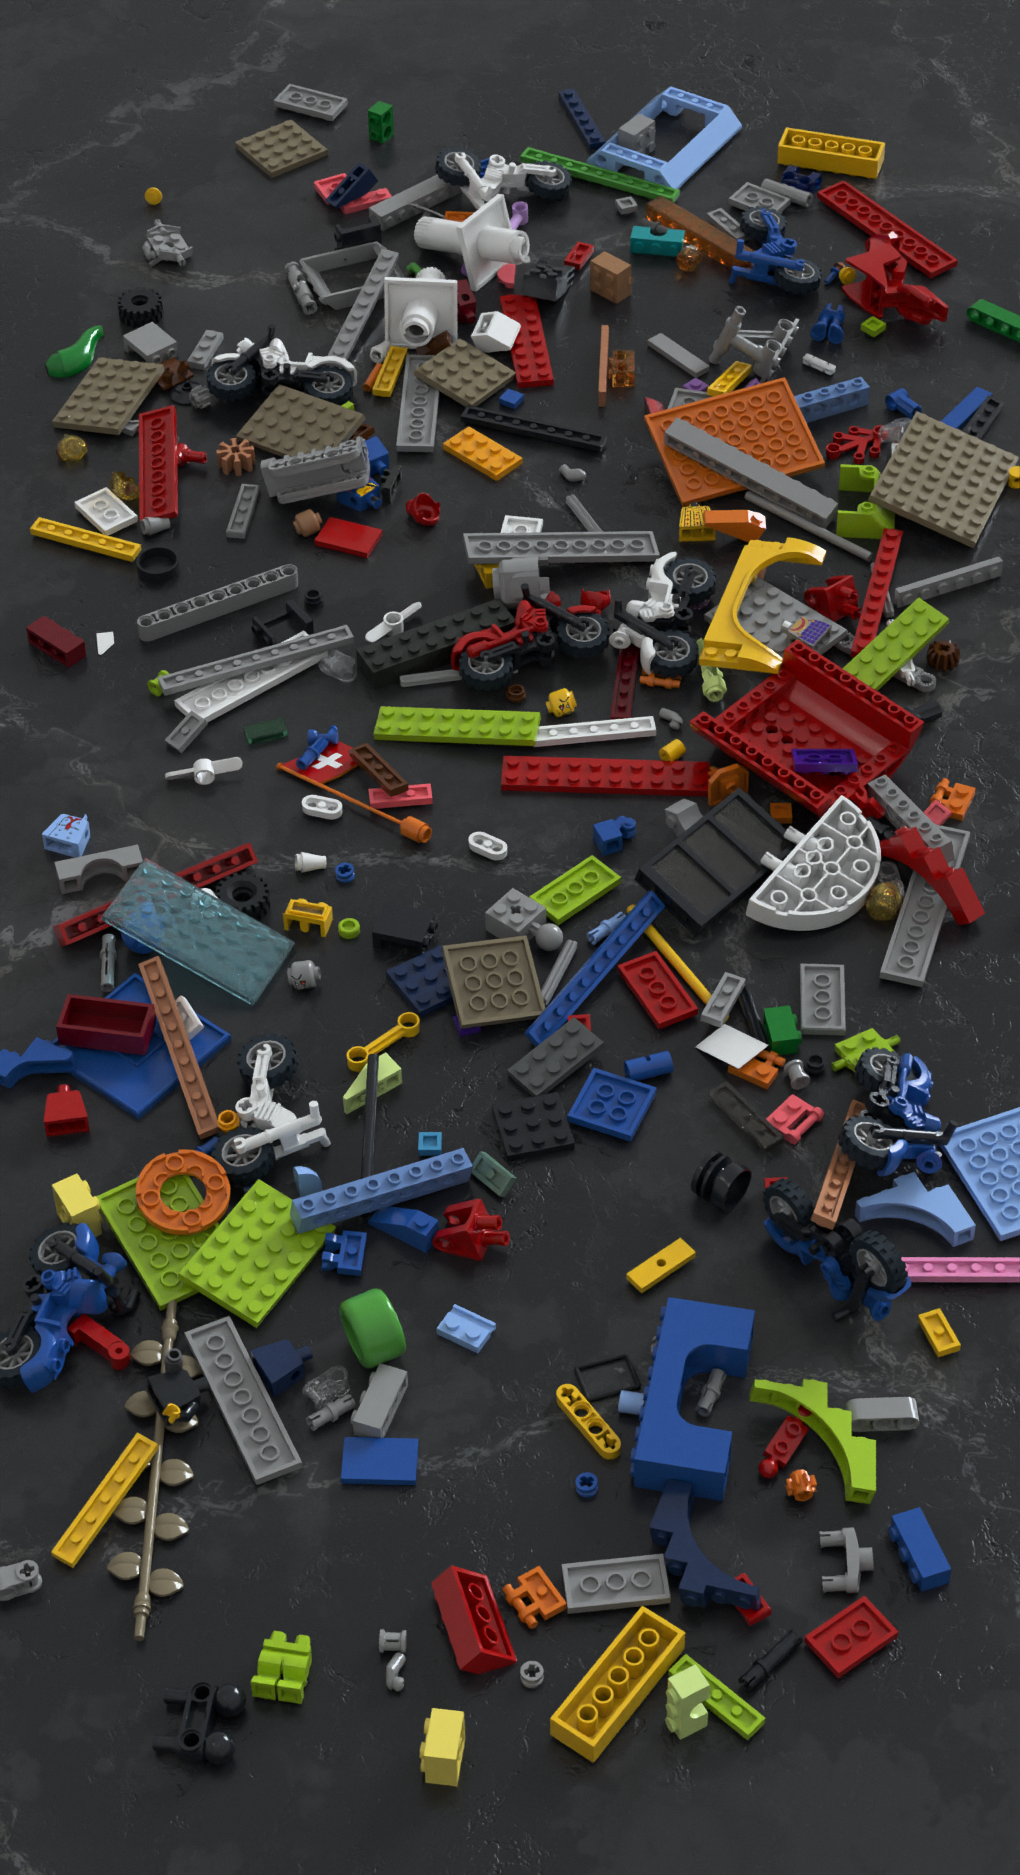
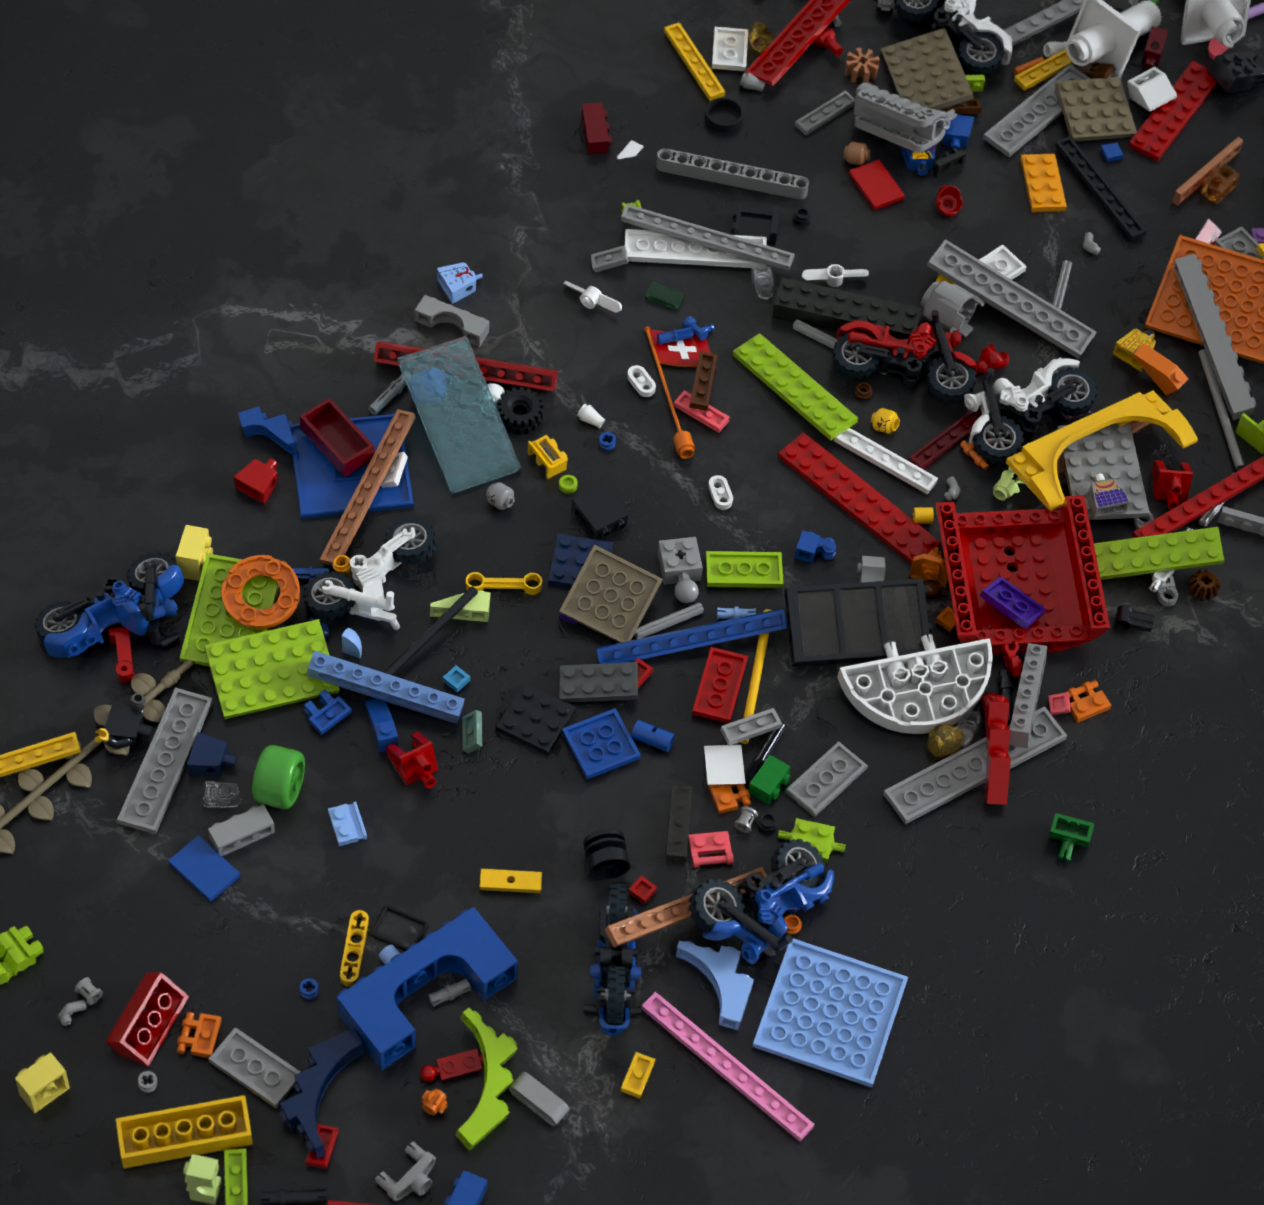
camera: 35 degrees right, 10 degrees up
(330, 1412) = (207, 812): light grey pin -> none

